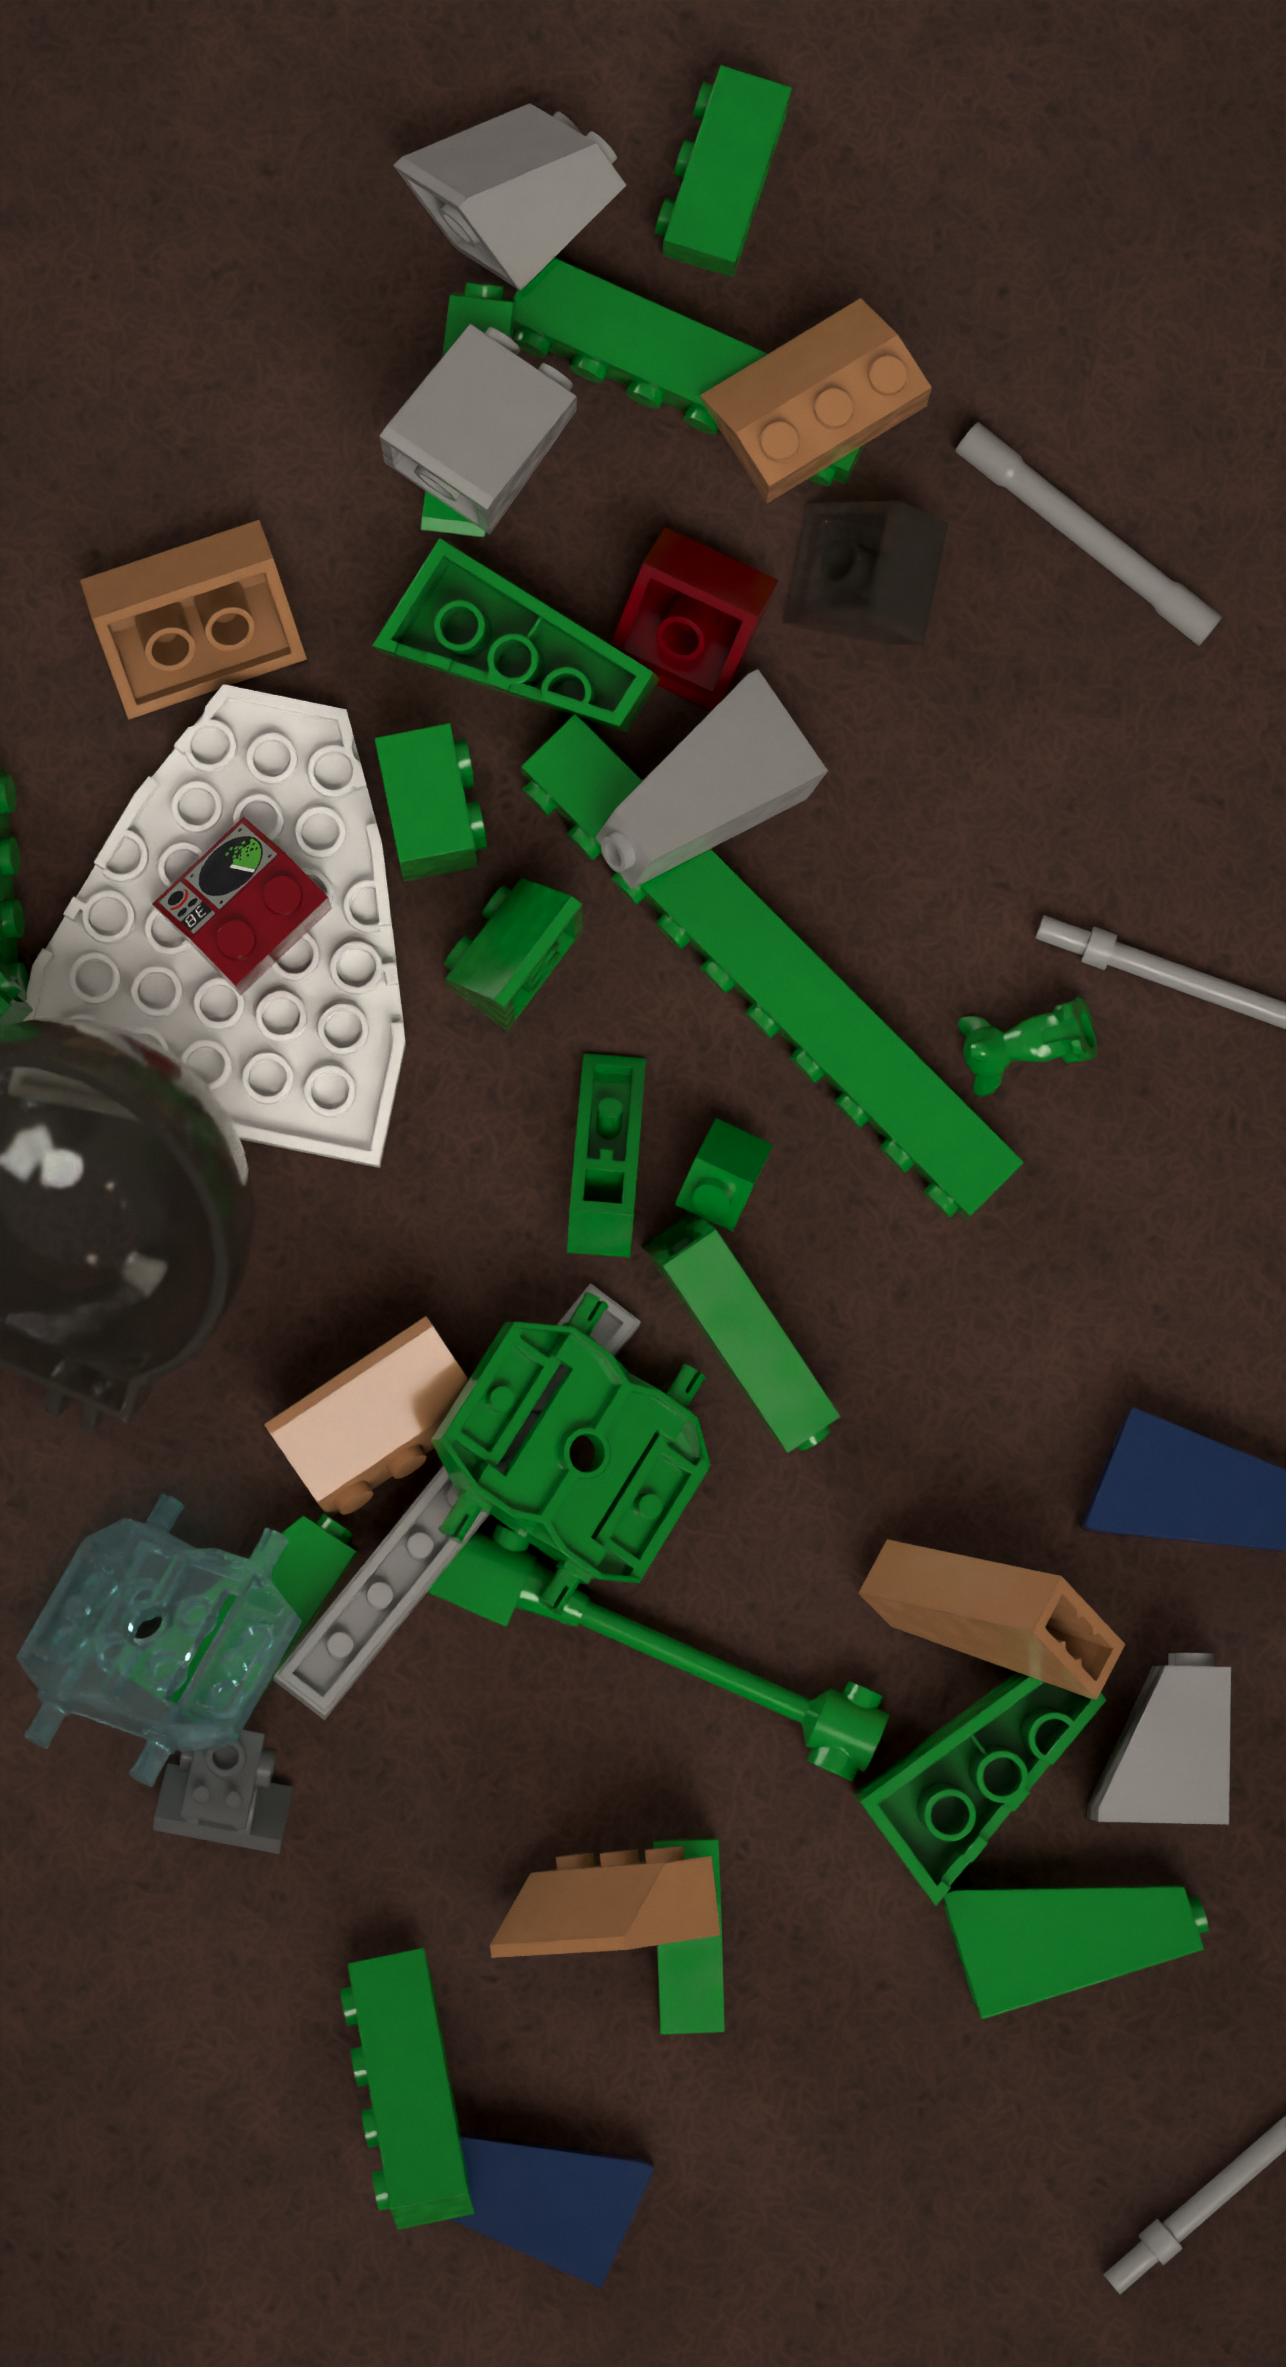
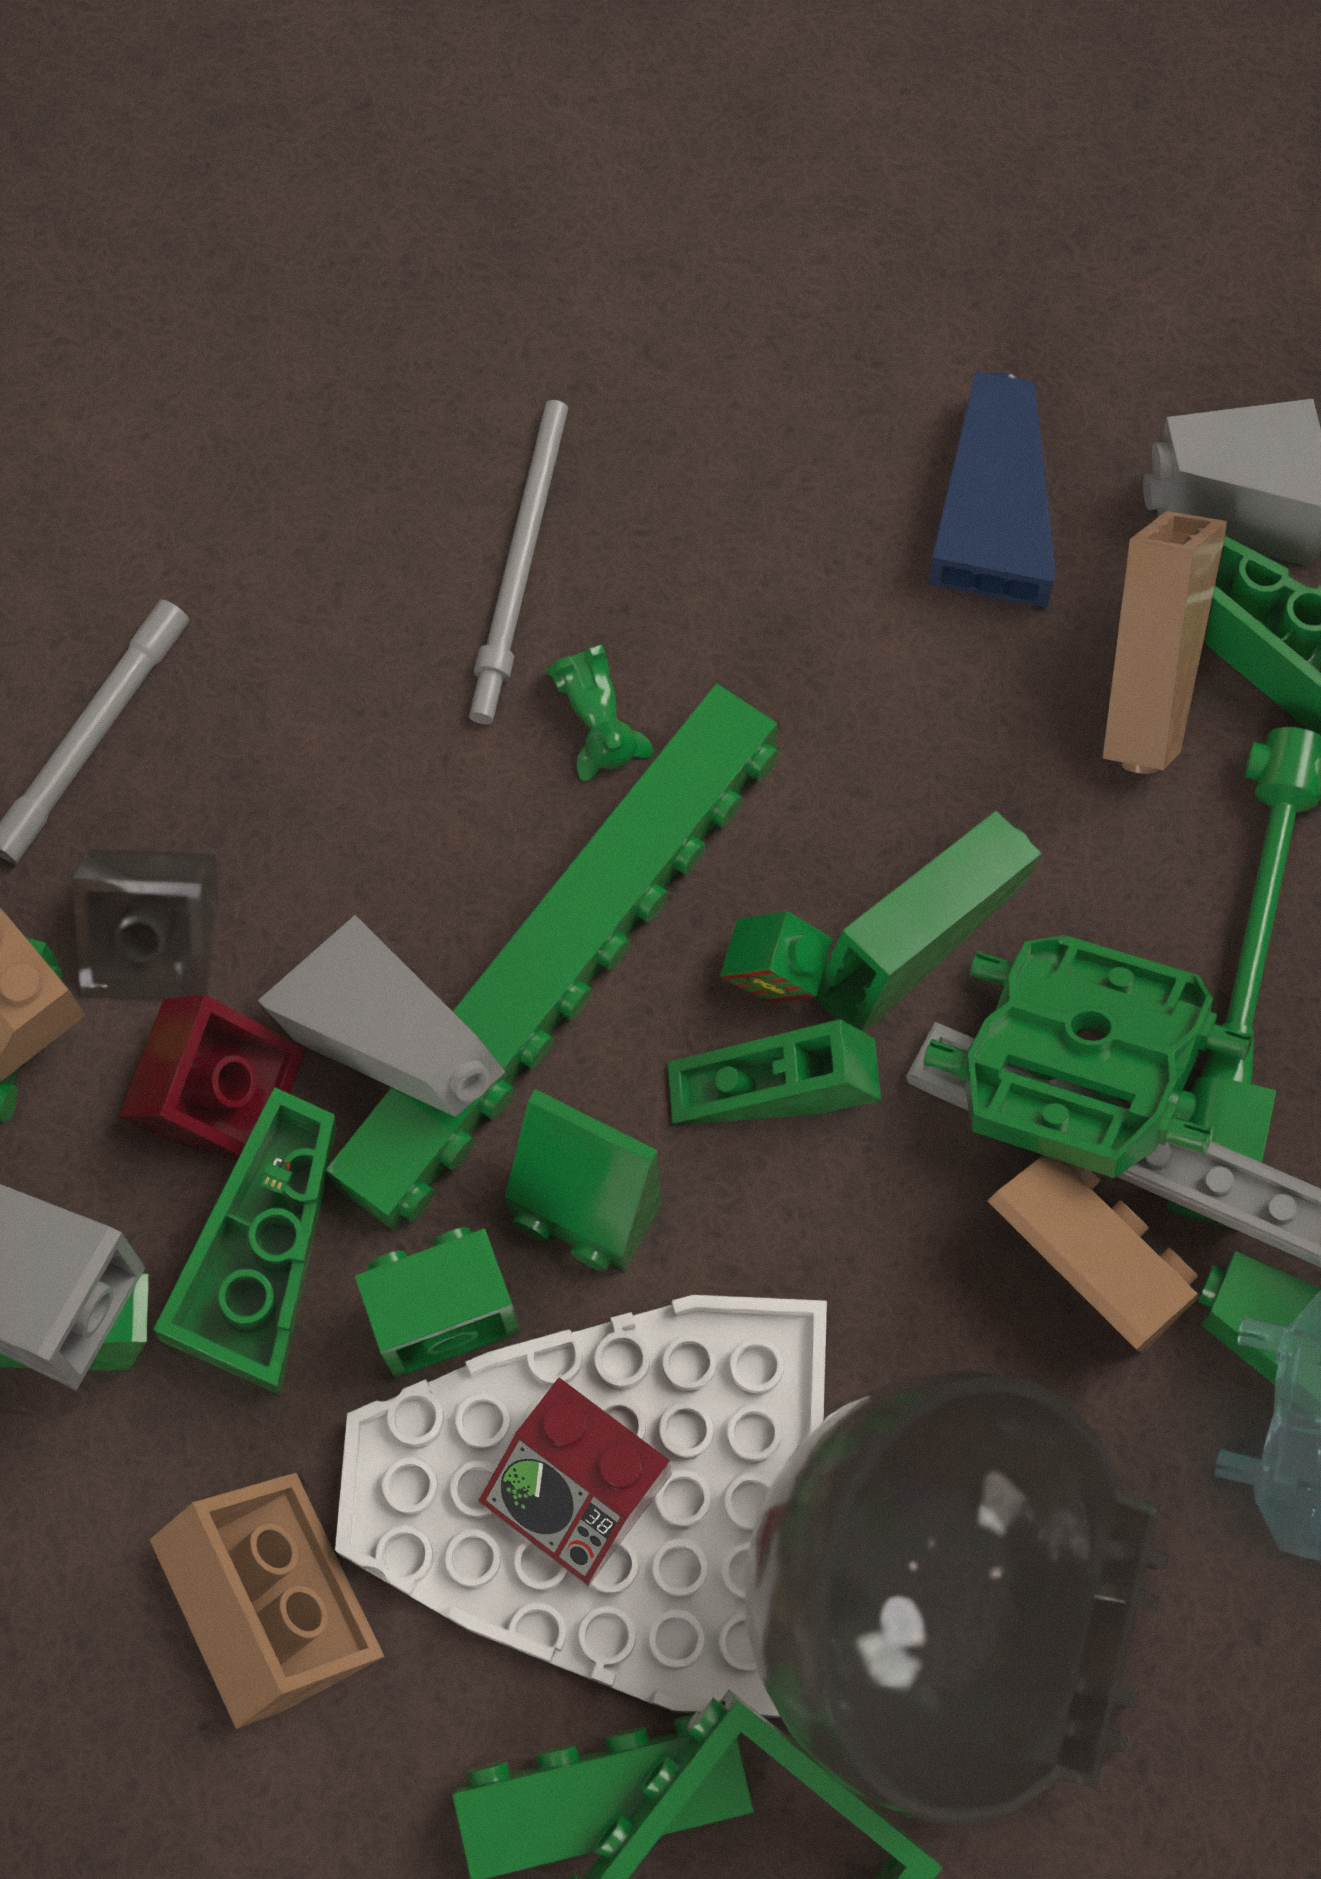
camera: 90 degrees left, 15 degrees down
(565, 664) = (275, 1177): none -> green piece

